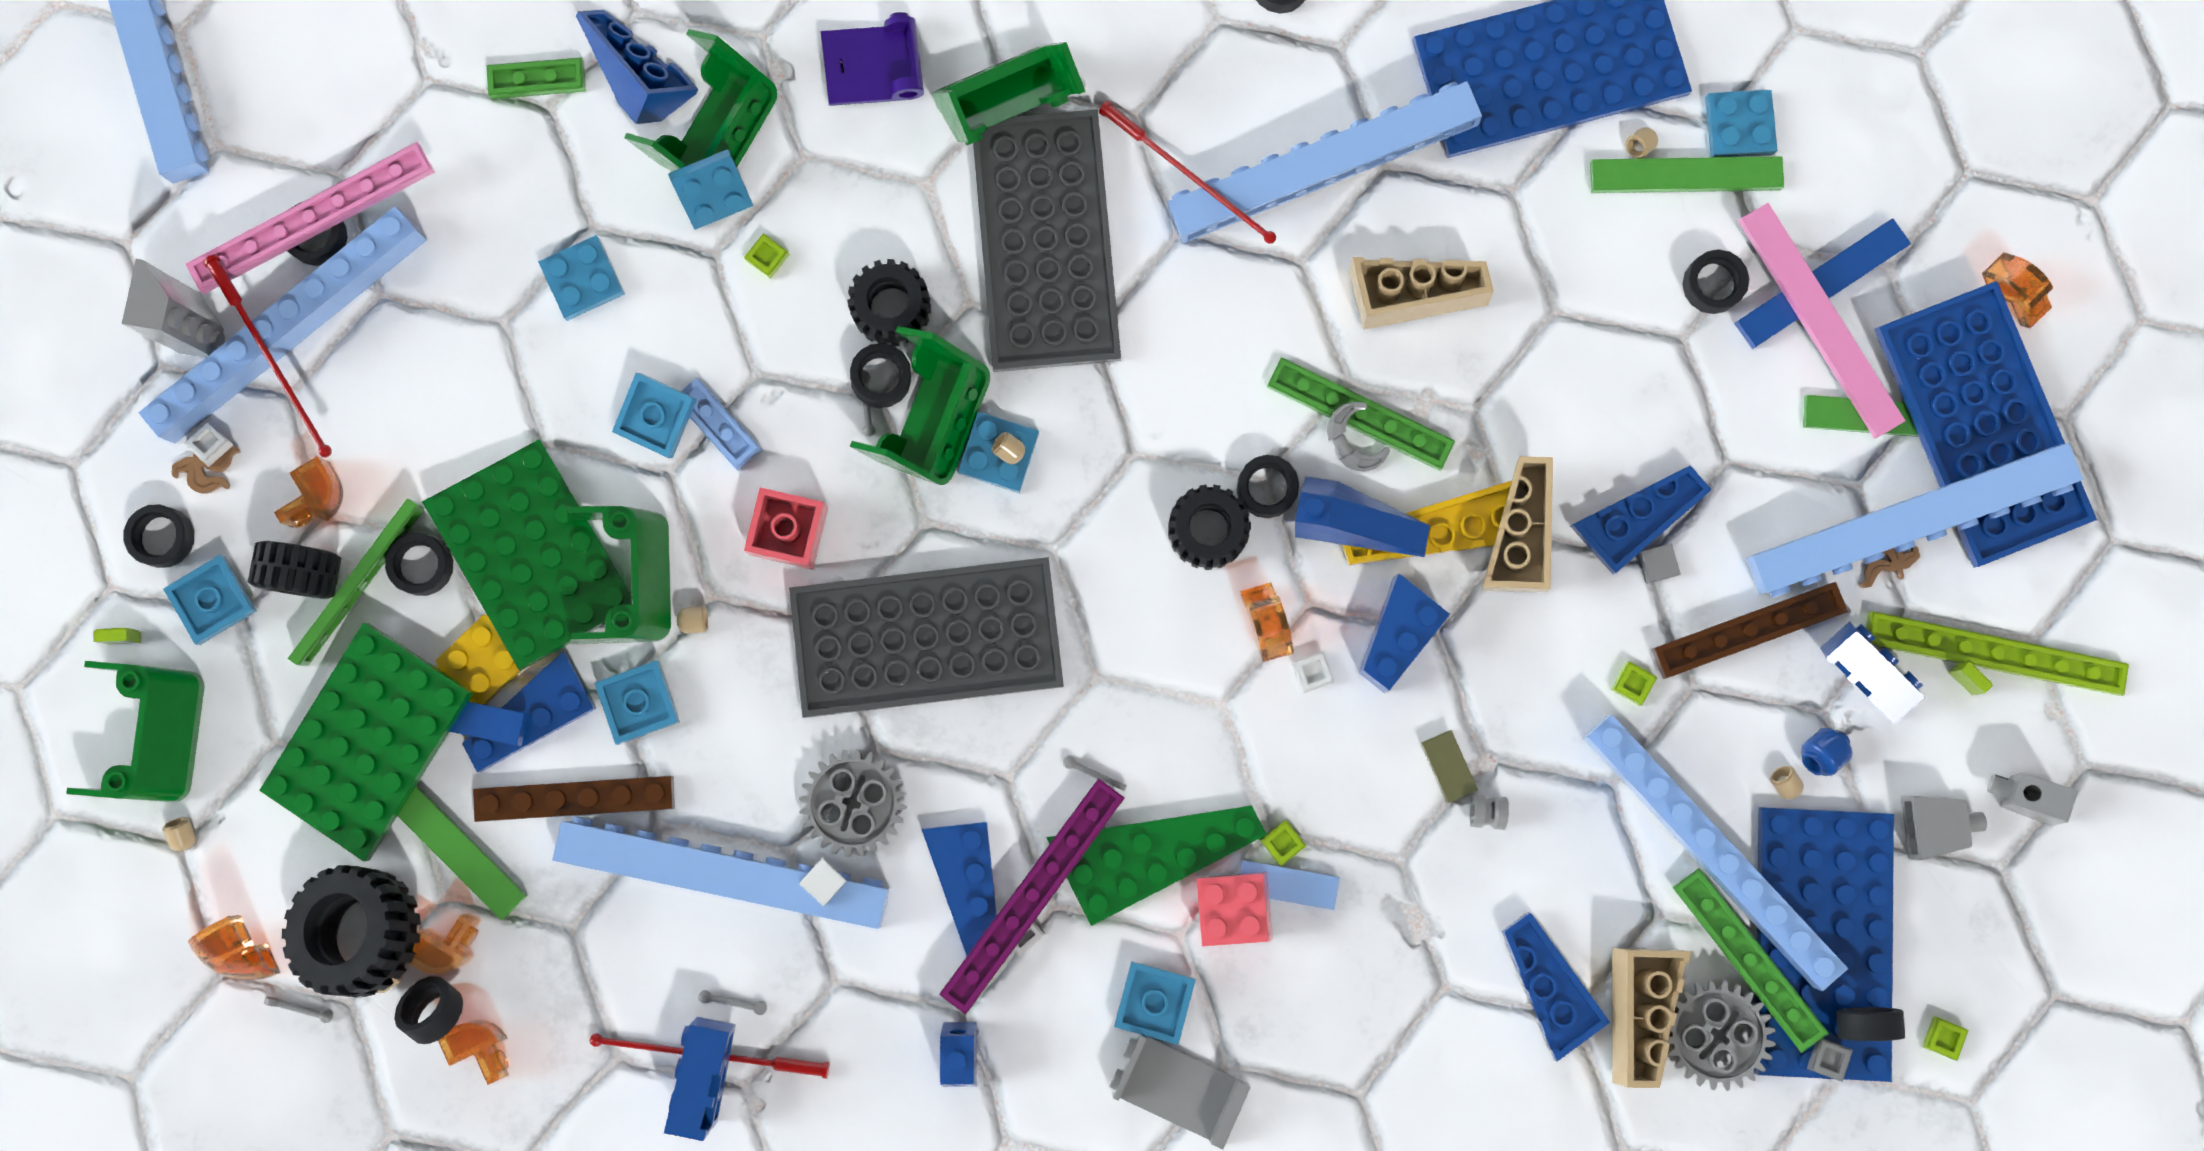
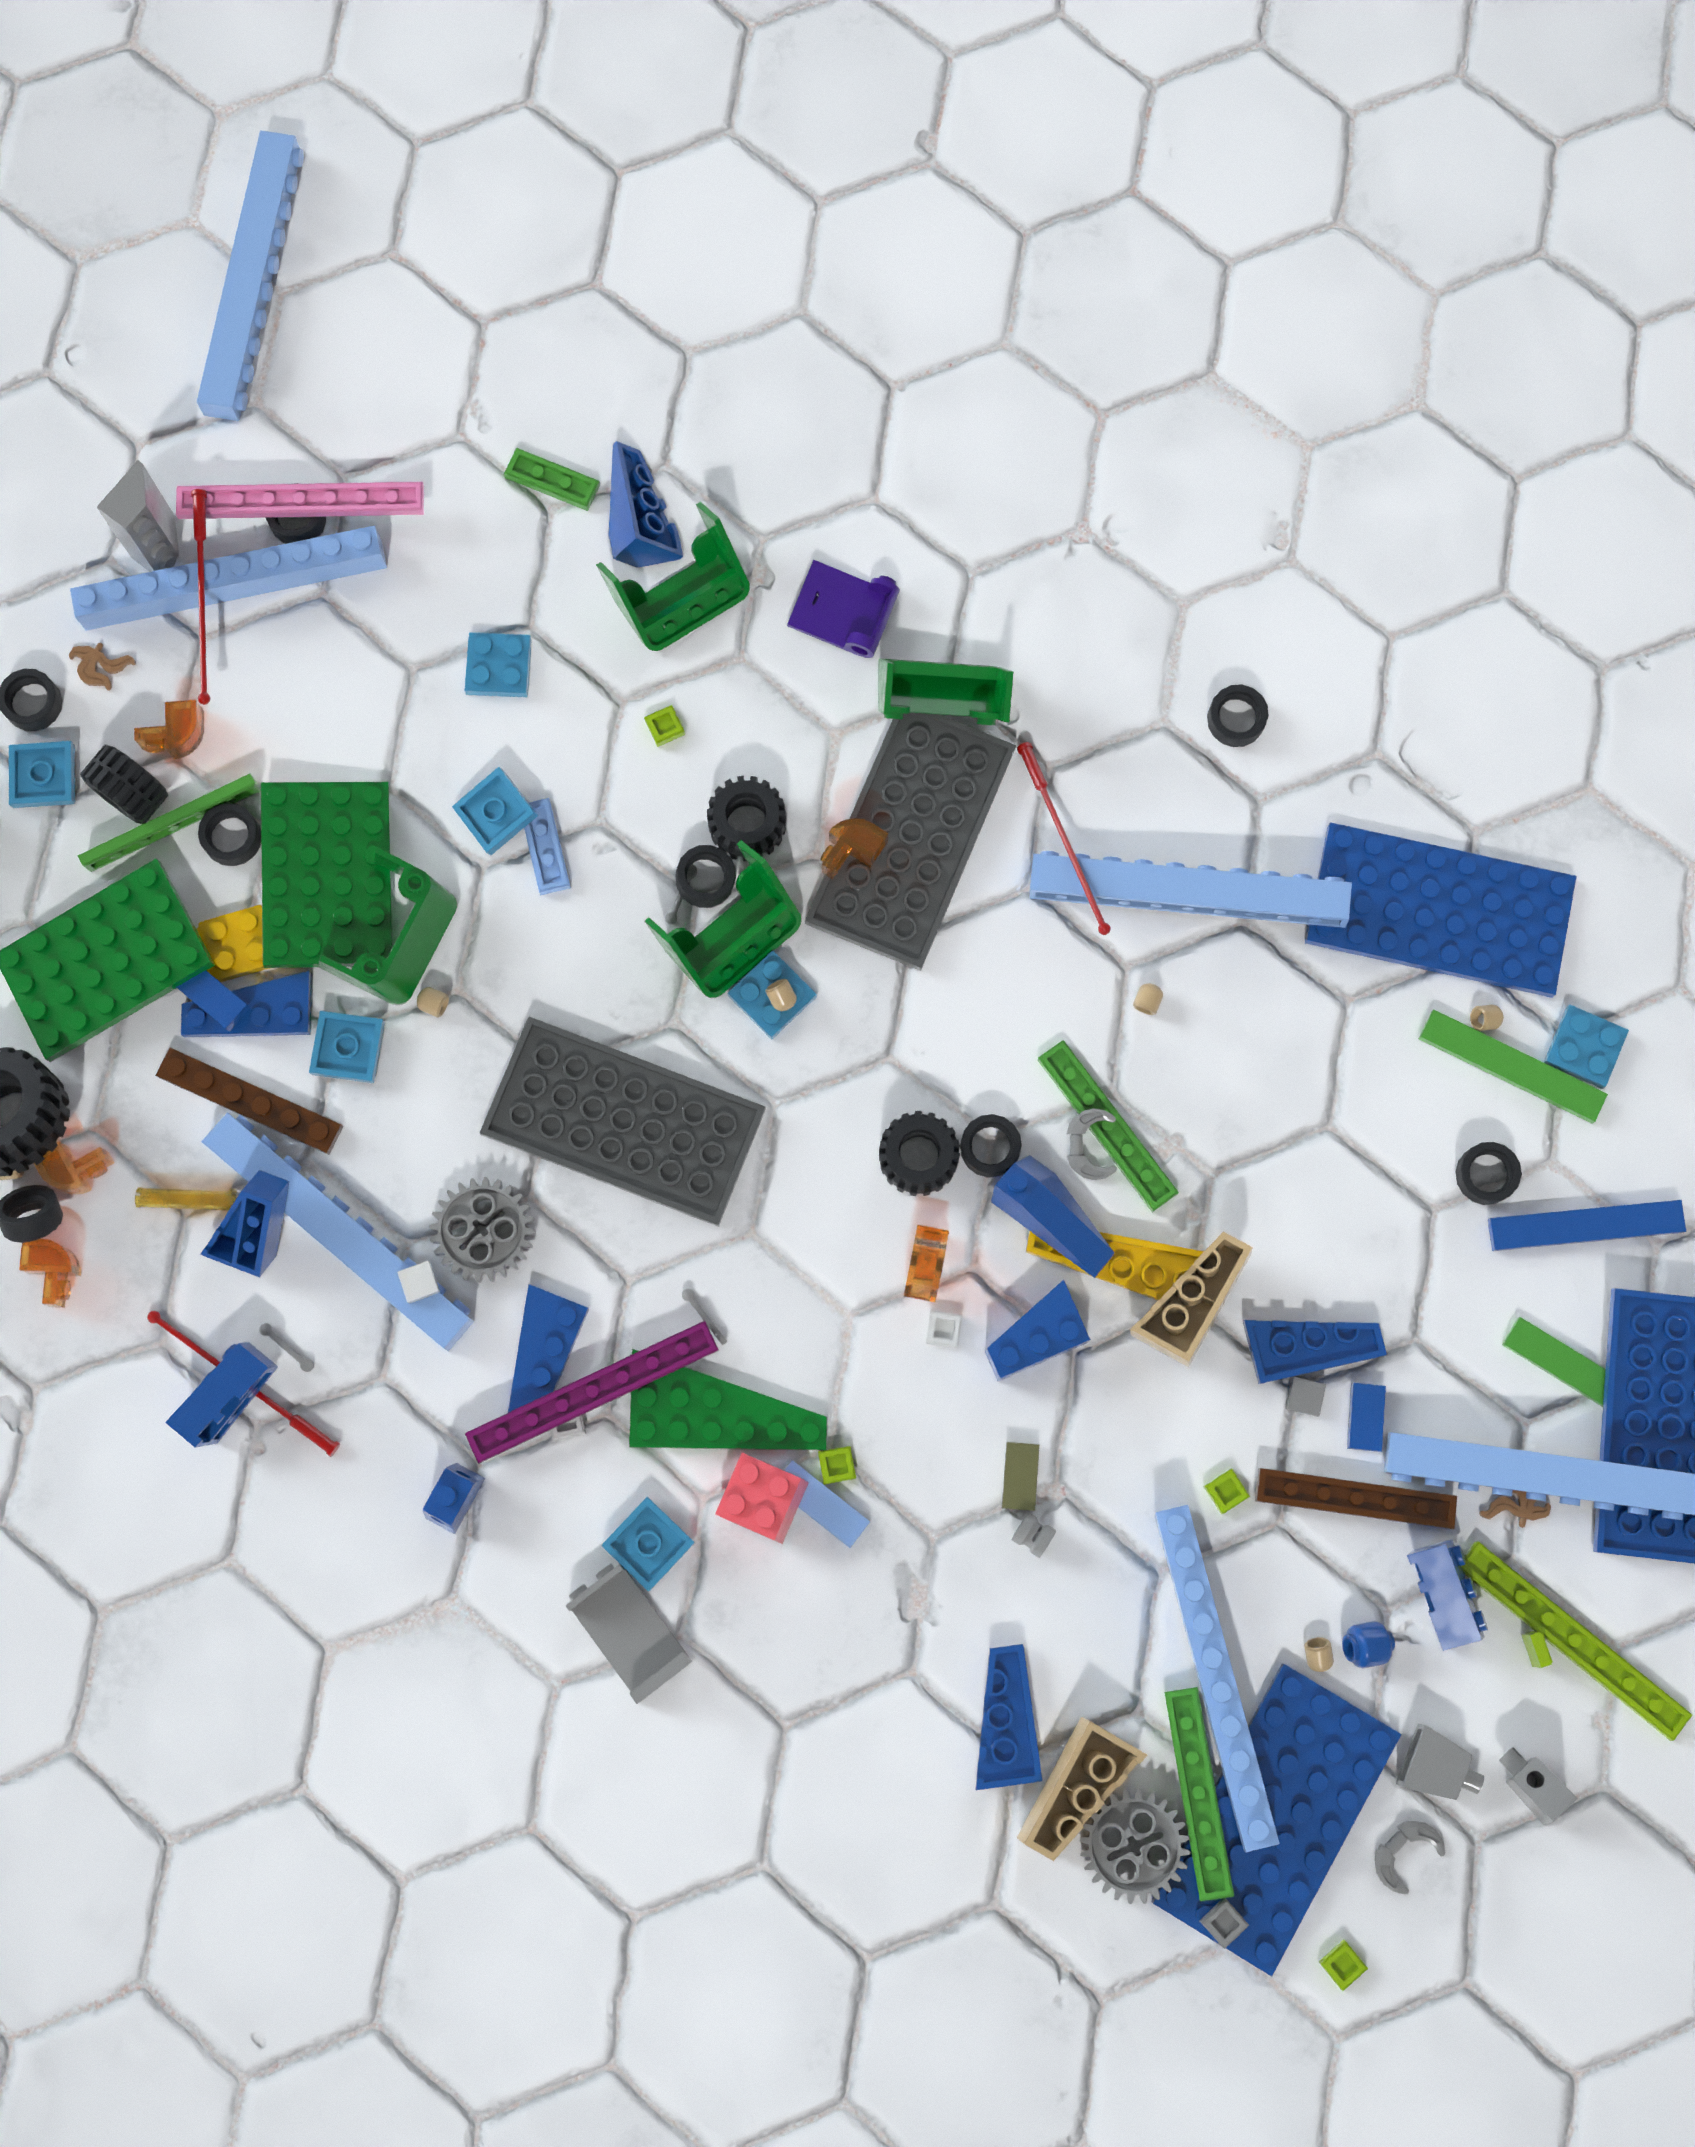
camera: 30 degrees right, 5 degrees down
(208, 444) = (112, 644): white tile -> none
(461, 854) = (129, 1098): bright green tile -> none
(567, 918) = (185, 1199): none -> clear yellow pin
(643, 913) = (252, 1226): none -> blue wedge
(710, 189) = (646, 645): dark azure plate -> none
(786, 528) = (553, 964): coral brick -> none
(1000, 270) = (853, 838): none -> clear orange brick
(1337, 280) = (1148, 999): none -> tan piece
(1416, 289) = (1214, 1042): tan wedge -> none
(1720, 553) = (1366, 1417): none -> blue tile
(1821, 321) = (1566, 1257): bright pink tile -> none
(1870, 1024) = (1275, 1907): black tyre -> none
(1945, 892) = (1384, 1856): none -> light grey piece

